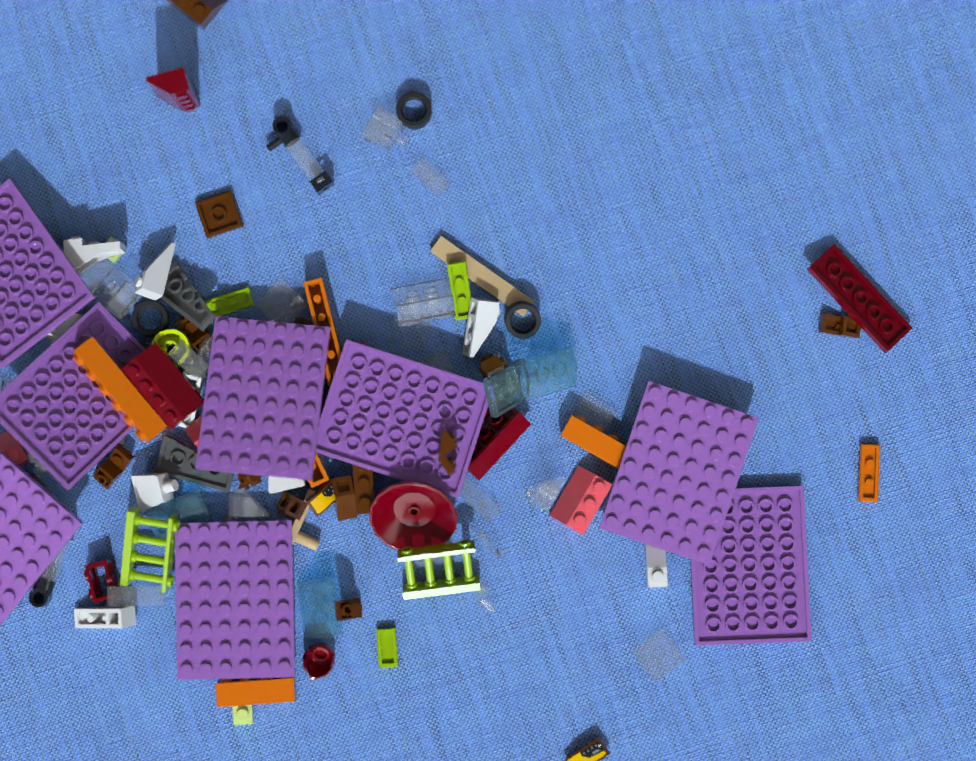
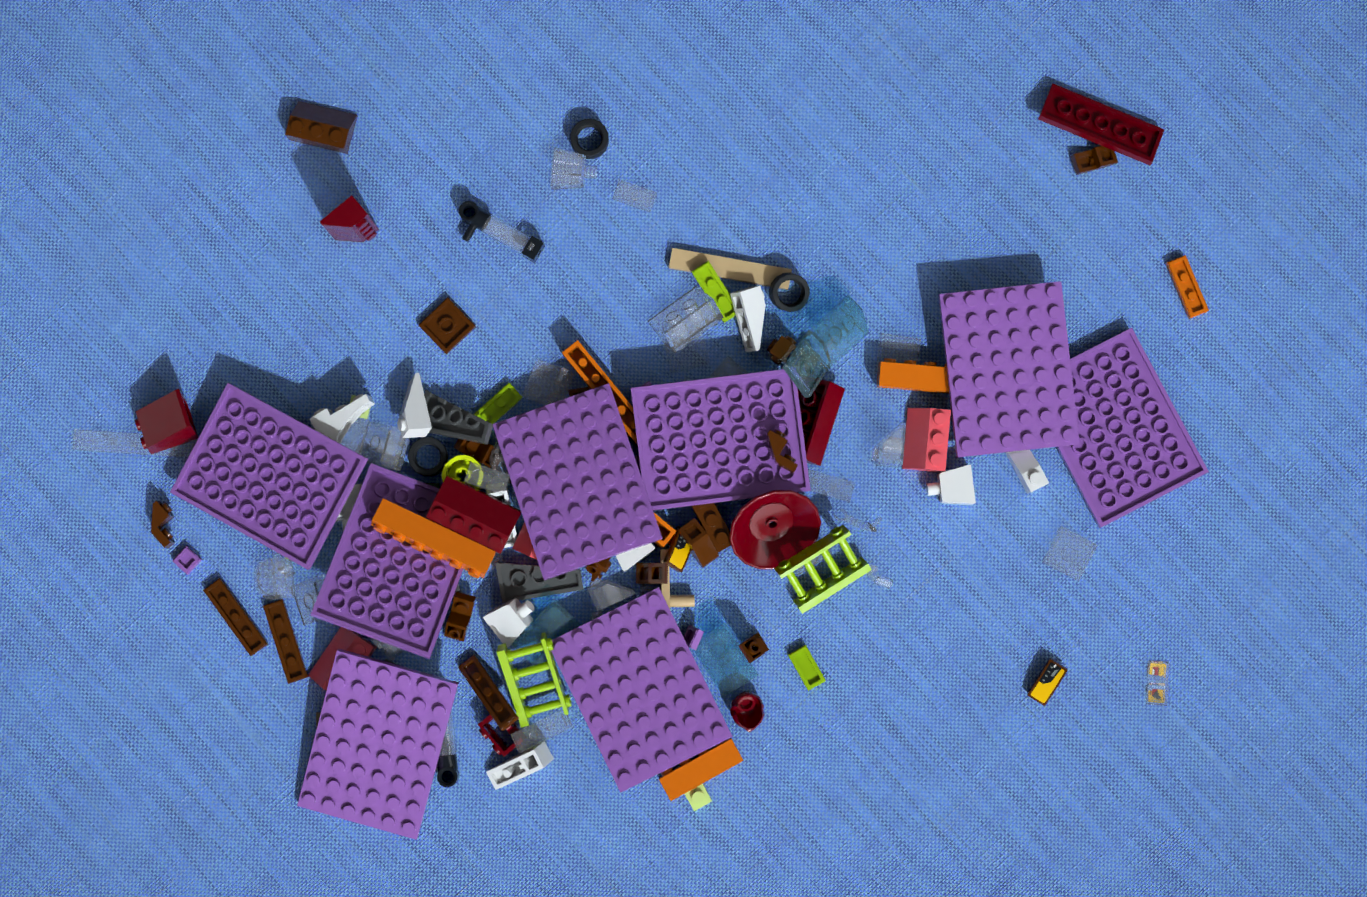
camera: 30 degrees left, 0 degrees up
(106, 542) = (488, 692): none -> reddish brown tile
(301, 576) = (693, 637): none -> medium lavender tile
(585, 551) = (954, 486): none -> white torso

